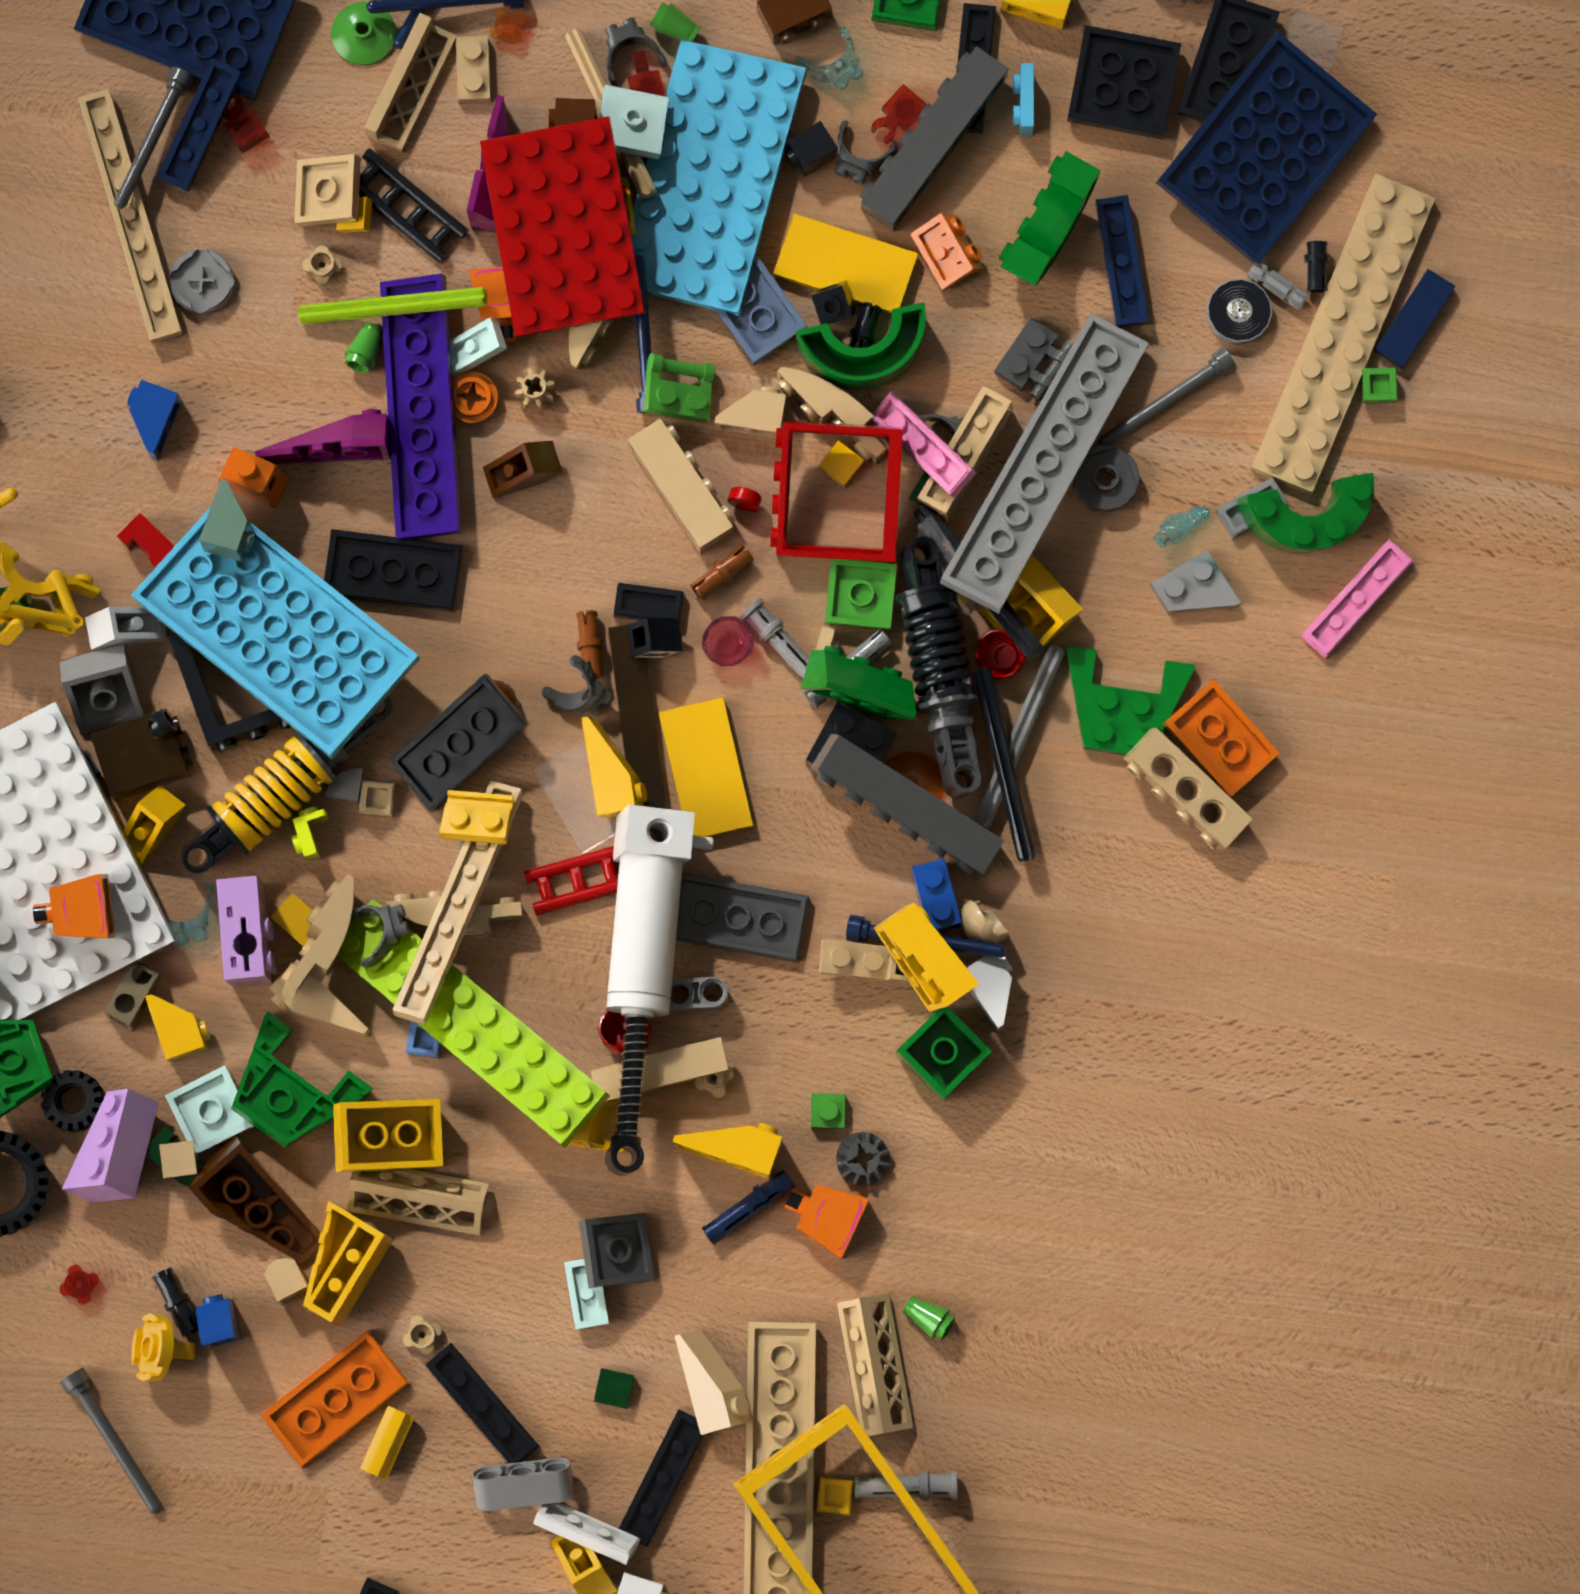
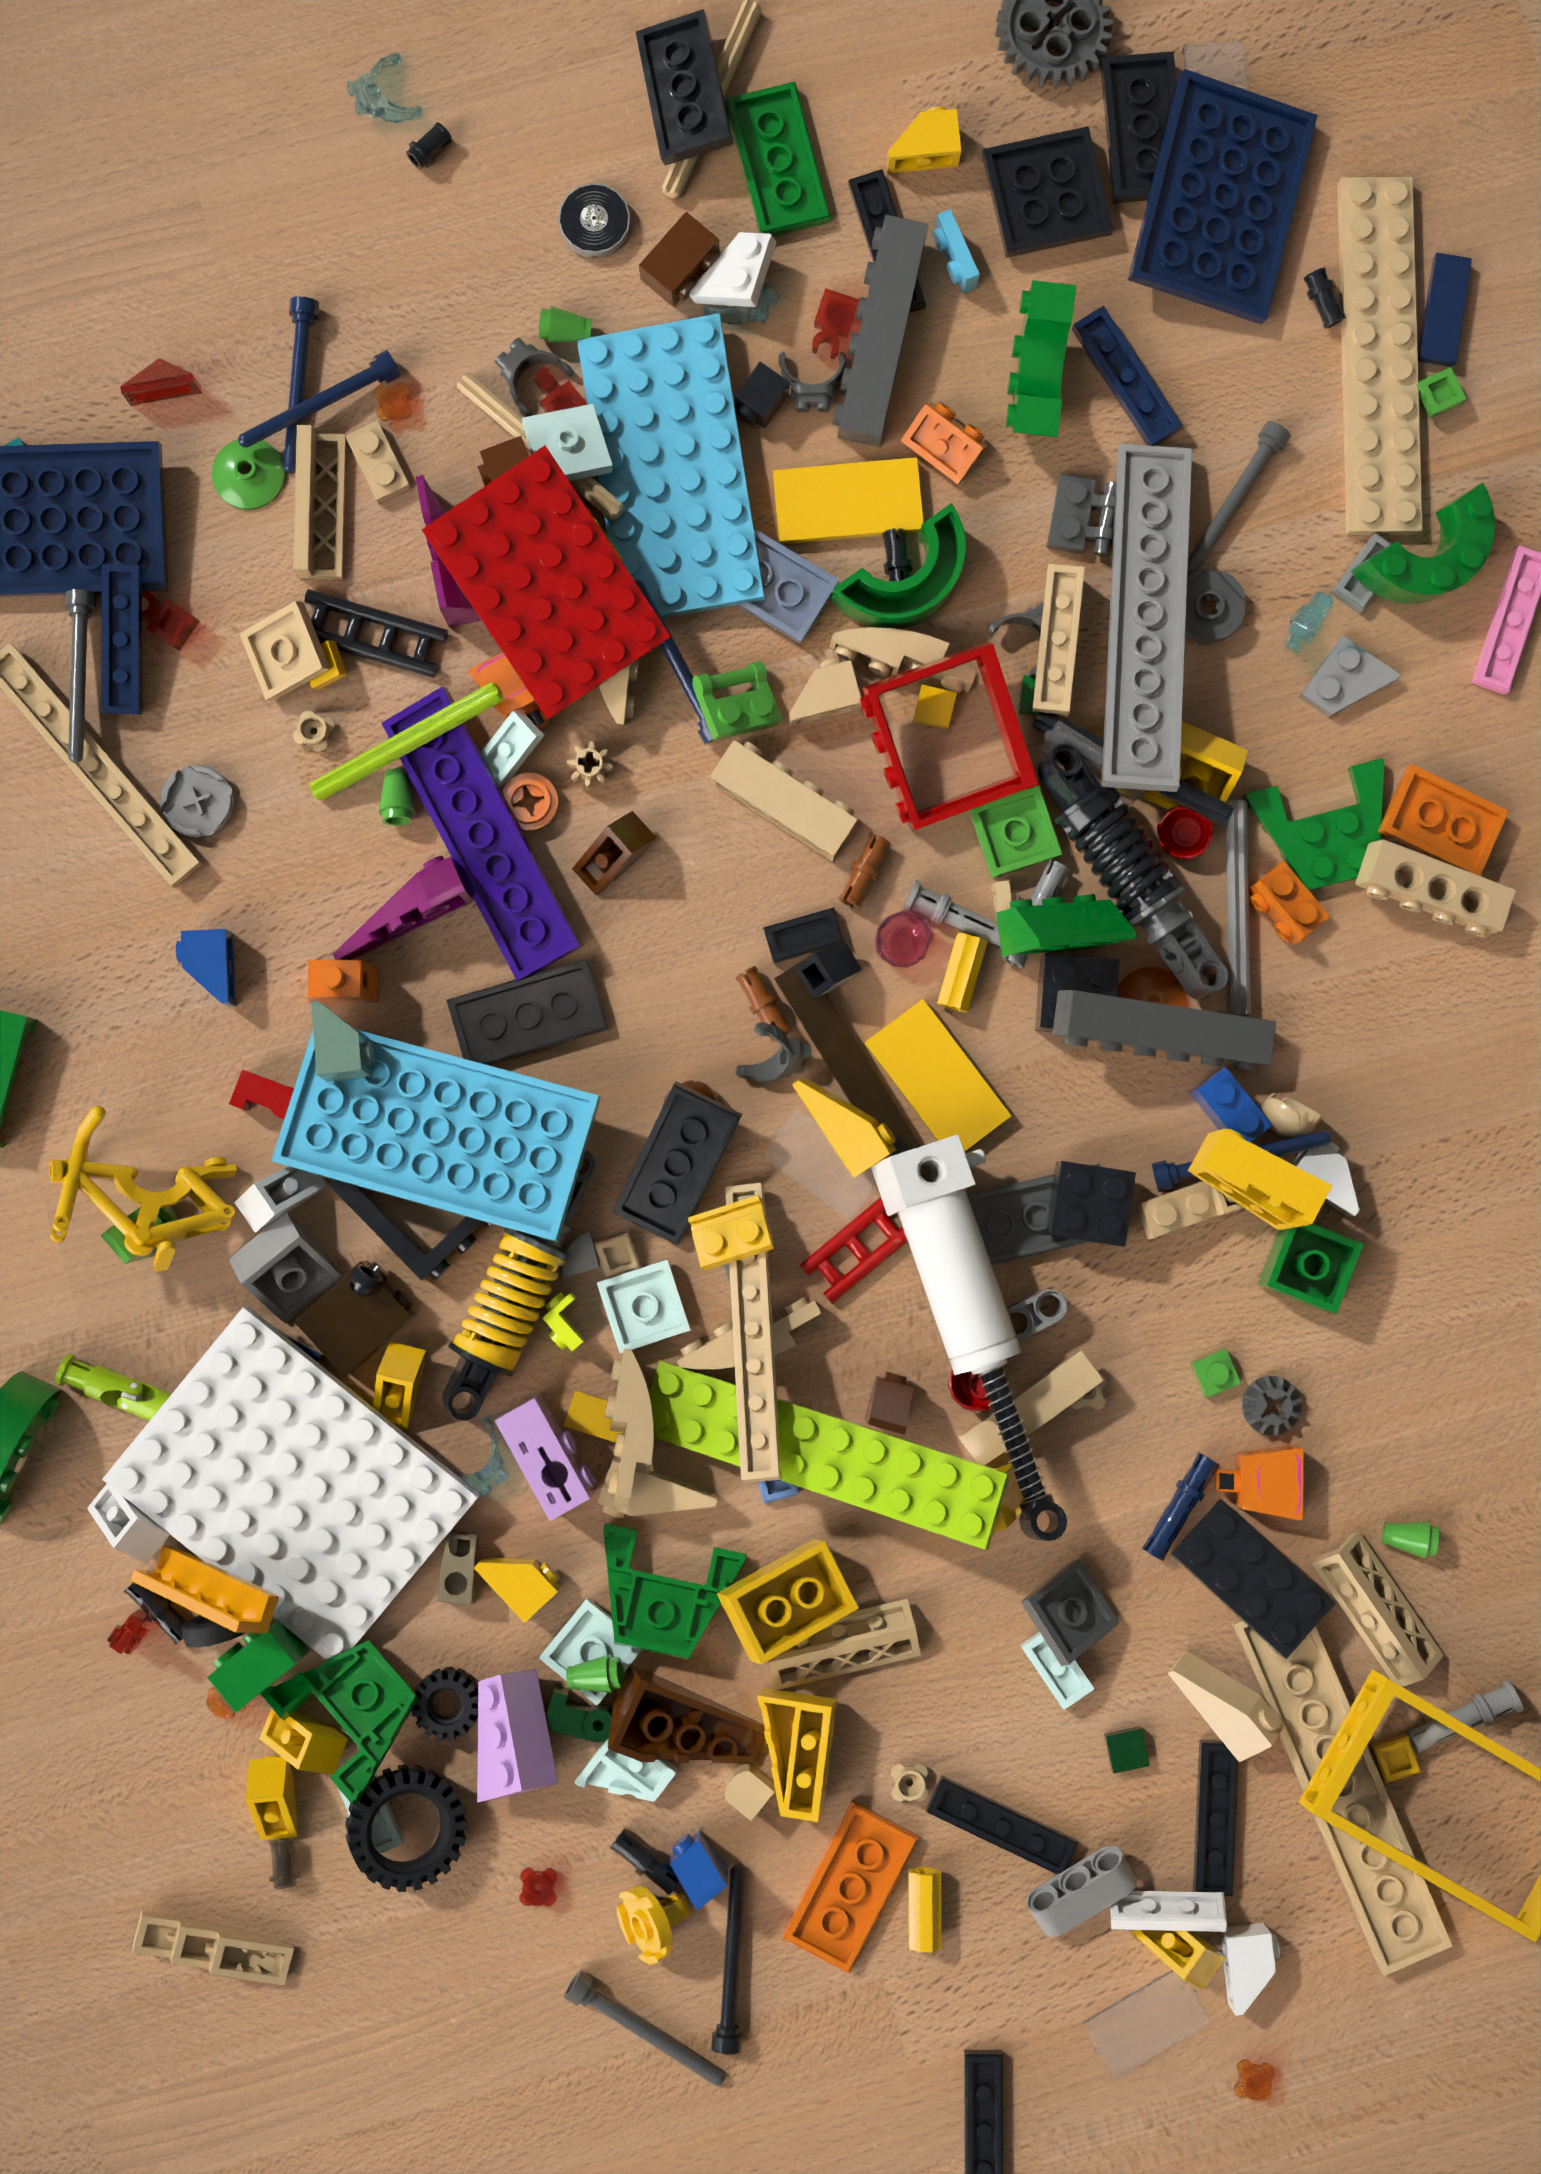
camera: 30 degrees left, 5 degrees up
(79, 908) = (366, 1512): orange torso -> none
(178, 1159) = (584, 1720): tan tile -> none
(179, 1471) = (727, 2036): none -> black piece
(194, 1222) = (626, 1775): none -> light aqua wing
(206, 1127) = (599, 1674): none -> bright green cone
(380, 848) = (643, 1306): none -> light aqua plate
(393, 929) = (697, 1386): dark grey helmet -> none
(545, 1013) = (890, 1403): none -> reddish brown slope
(738, 1147) = (1149, 1453): yellow slope -> none
(744, 499) = (854, 785): red tile -> none
(765, 690) = (962, 972): none -> yellow axle
(780, 1290) = (1252, 1579): none -> black plate
(782, 922) = (1090, 1203): none -> black brick
(833, 303) = (856, 544): black brick -> none
(836, 40) = (737, 273): none -> white wing
(925, 445) = (1018, 651): bright pink tile -> none
(1004, 765) = (1240, 944): black axle -> none
(1062, 751) = (1287, 904): none -> orange bracket
(1239, 311) = (1265, 378): black tile -> none
(1278, 285) = (1293, 334): light grey axle -> none

